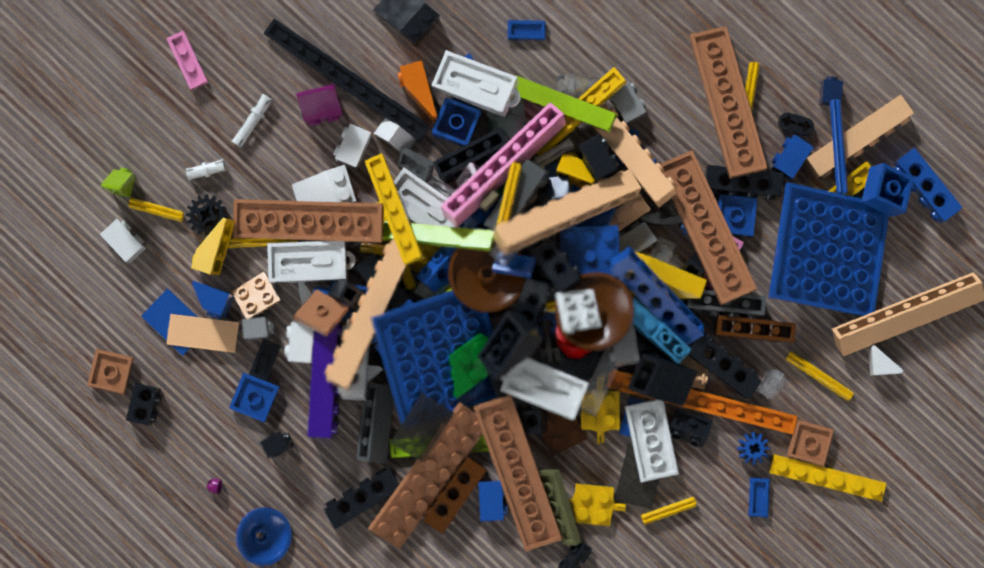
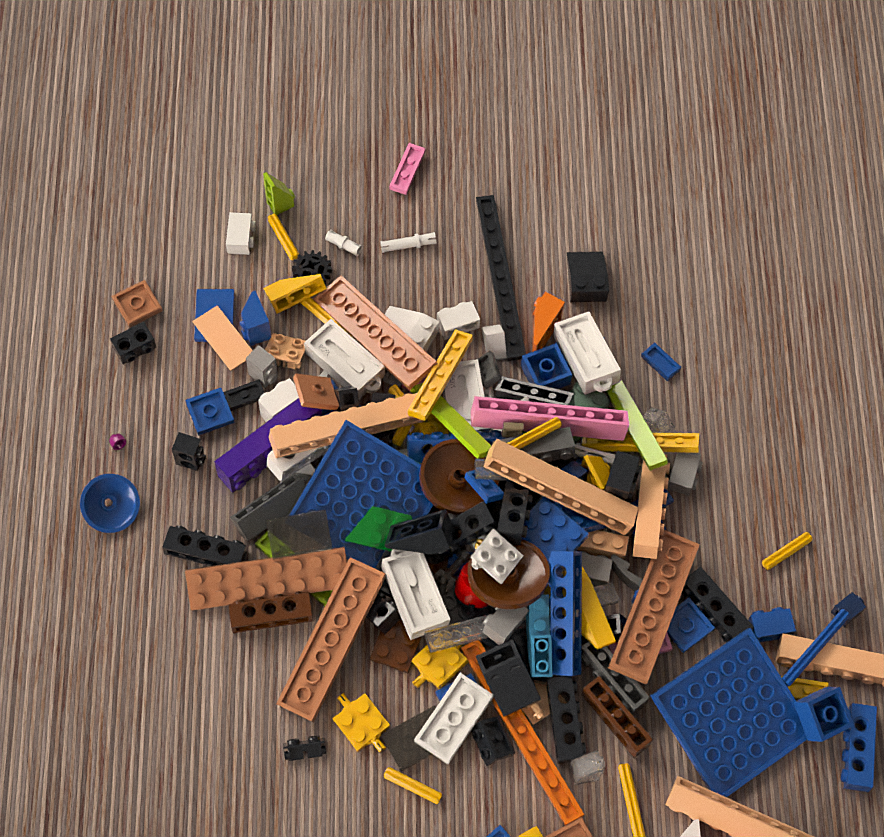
camera: 45 degrees right, 20 degrees down
(319, 105) = (464, 268): magenta slope -> none
(491, 501) = (290, 643): blue brick -> none
(560, 505) = (339, 690): olive wing -> none
(728, 102) = (760, 540): nougat plate -> none
(746, 451) = (519, 809): blue gear -> none
(797, 119) = (802, 606): black beam -> none

